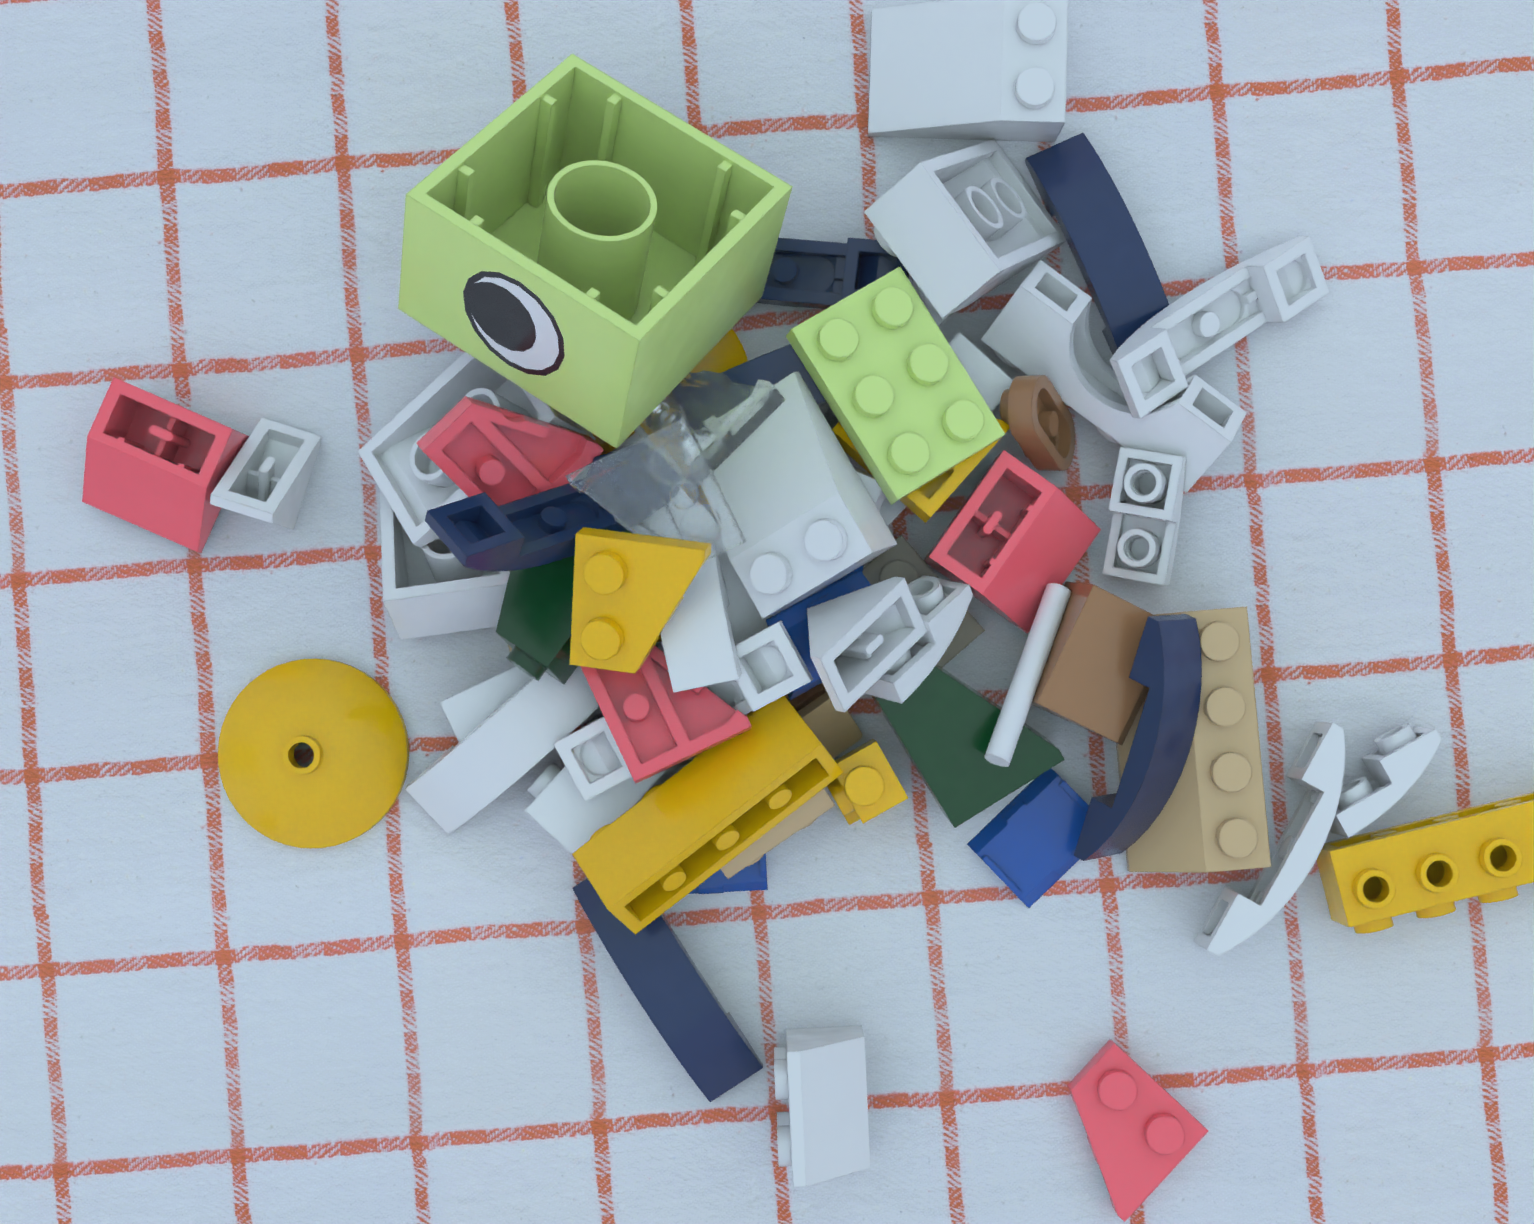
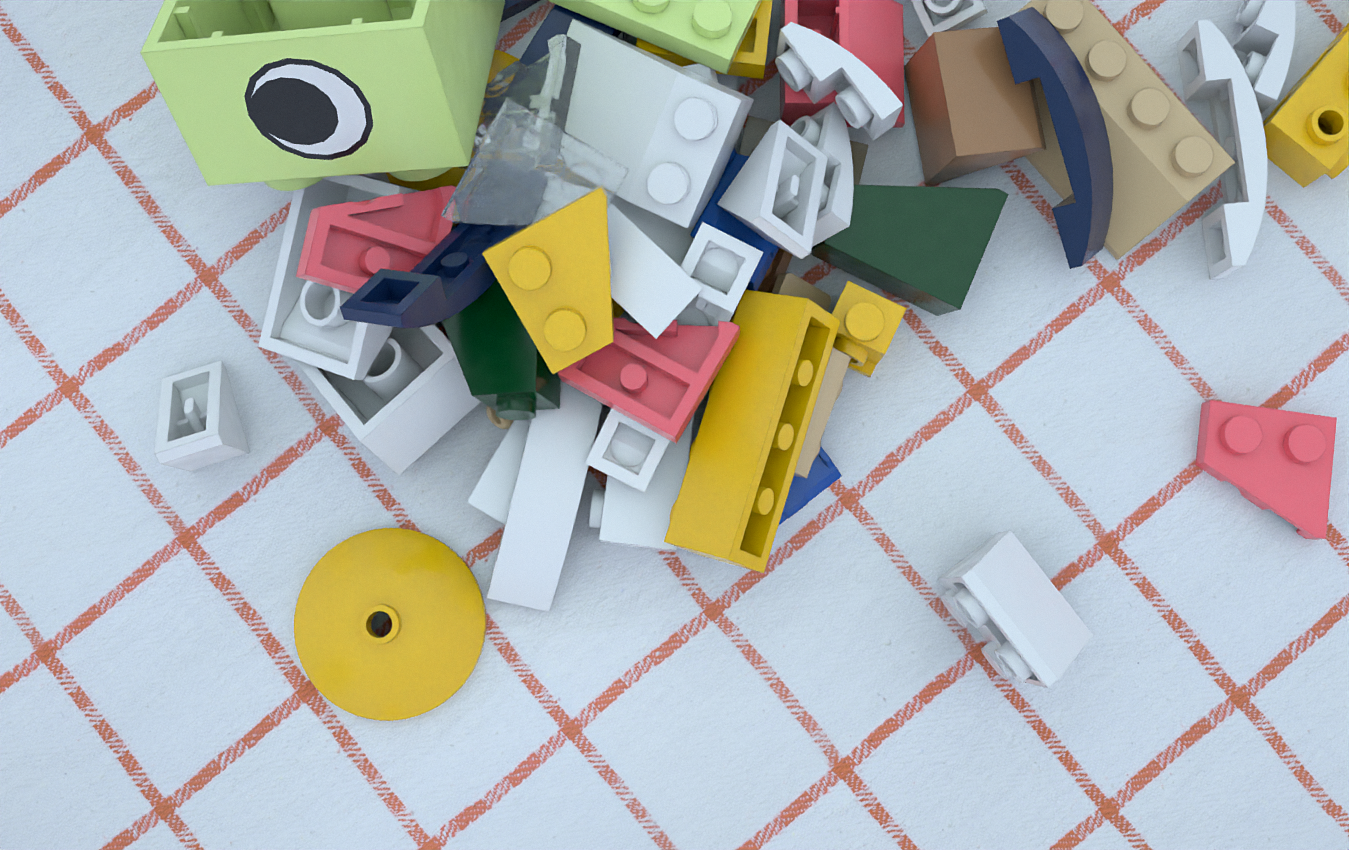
camera: 40 degrees left, 5 degrees down
(157, 464) = (94, 467): coral slope -> none
(675, 998) = (823, 609): dark blue slope -> none
(973, 553) = (822, 66): none -> white slope
(1027, 675) = (931, 146): white bar -> none
(1034, 837) = (1025, 282): blue piece -> none

